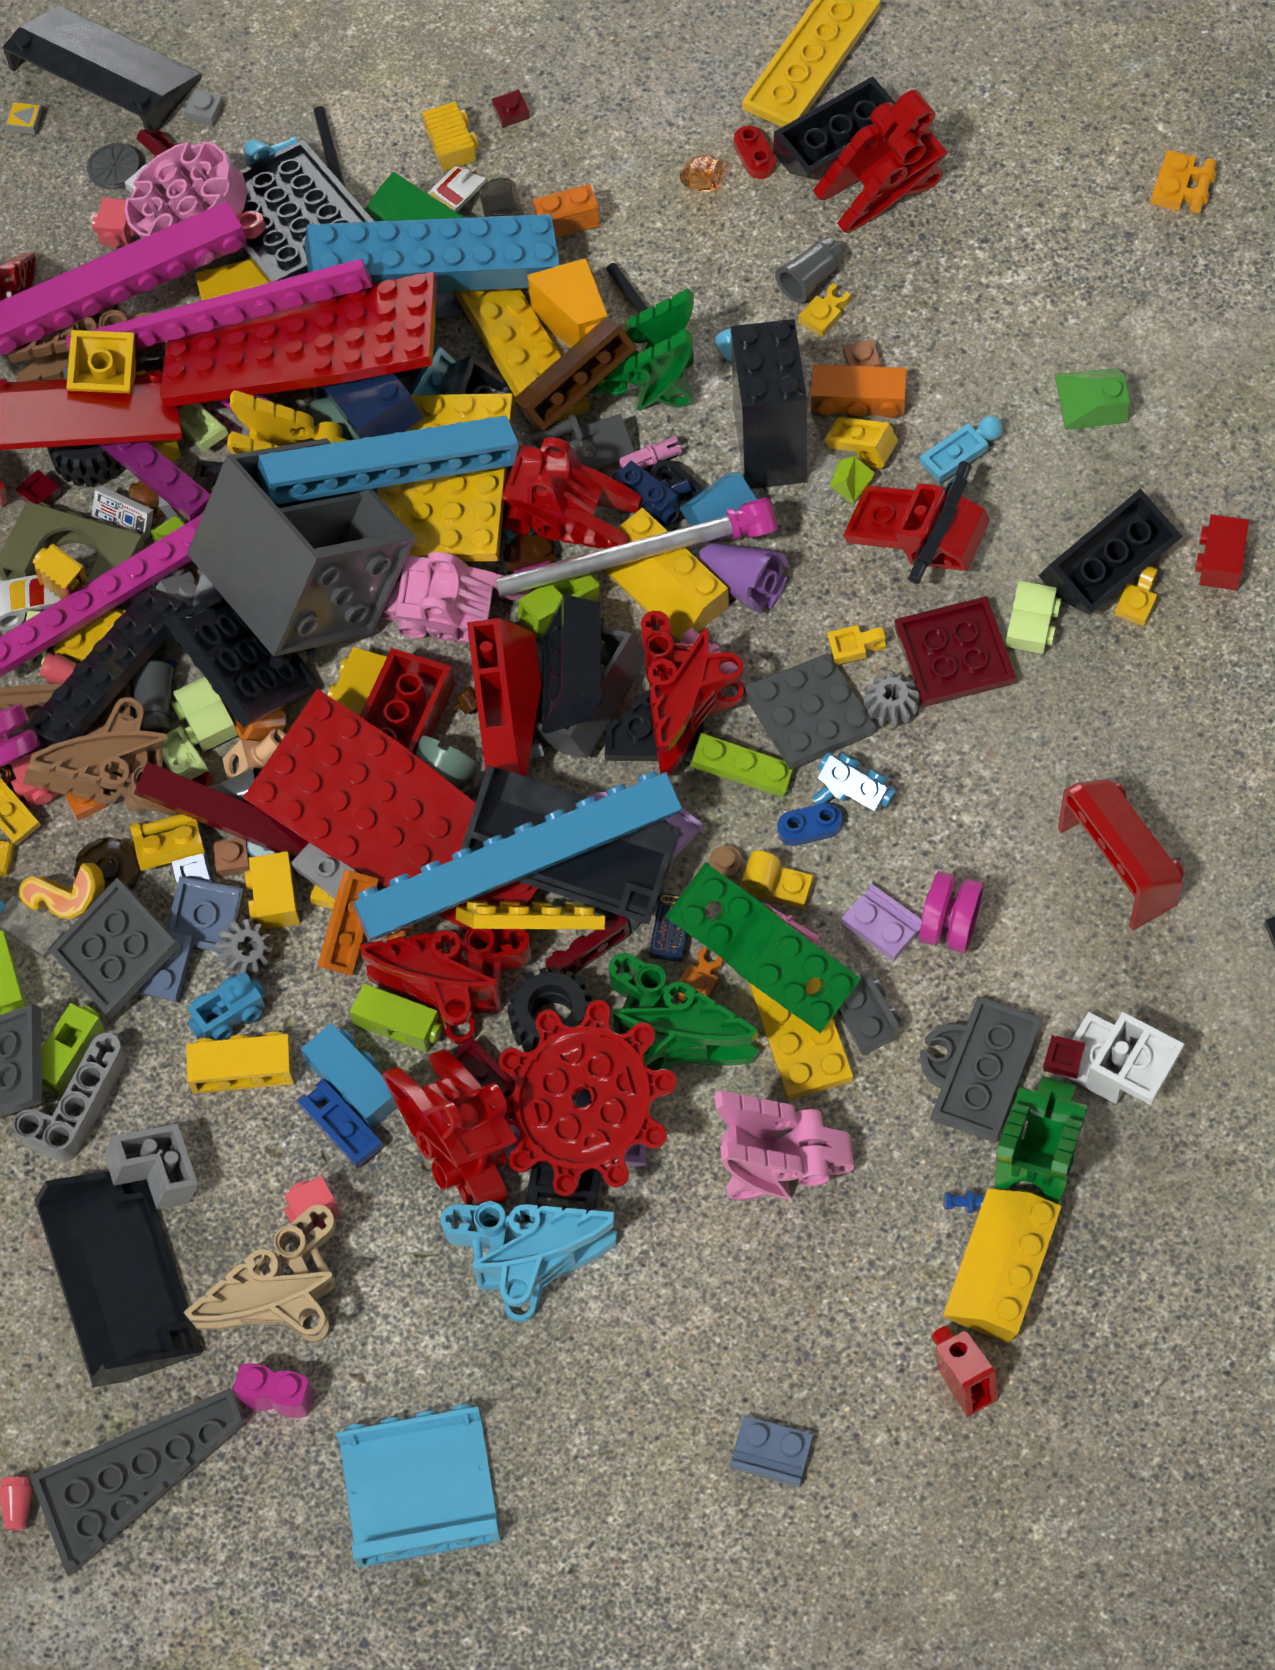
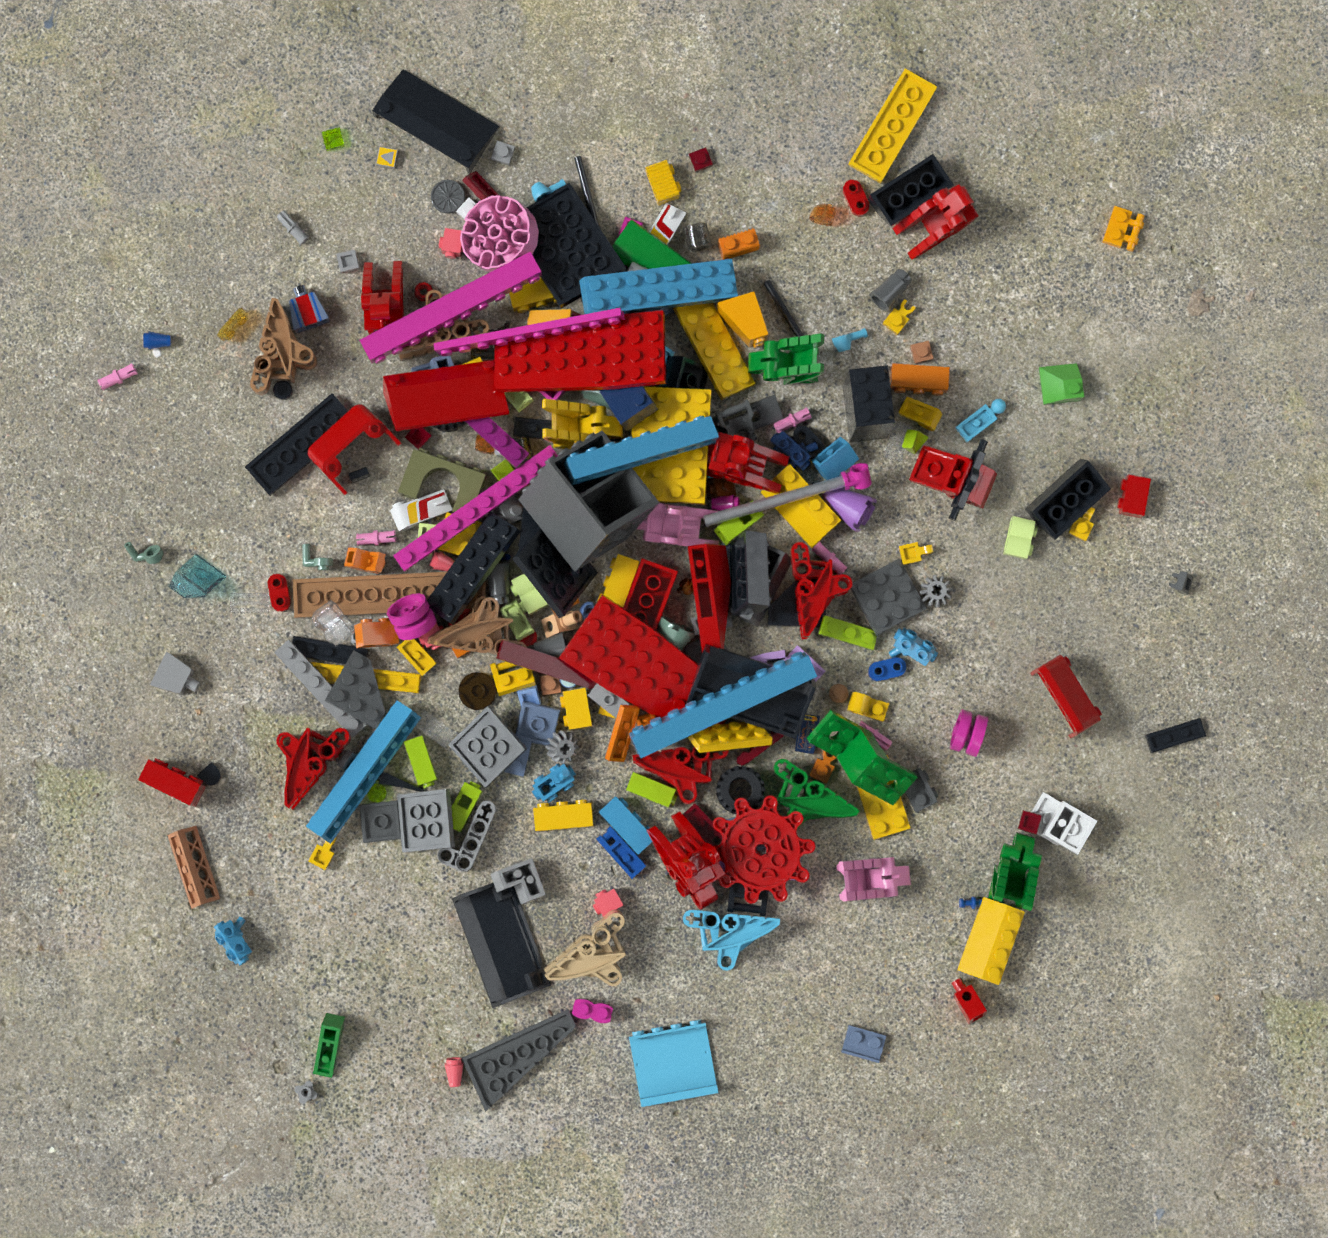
camera: 10 degrees left, 20 degrees up
(58, 571) = (439, 505): yellow brick -> none
(61, 900) = (453, 713): yellow animal -> none
(101, 361) = (457, 364): yellow slope -> none
(121, 511) = (471, 454): white tile -> none
(252, 224) = (542, 256): coral tile -> none
(574, 374) = (749, 377): reddish brown brick -> none
(882, 922) = (928, 732): lavender plate -> none
(954, 651) = (973, 558): dark red plate -> none
(980, 1067) = (982, 823): dark grey plate -> none

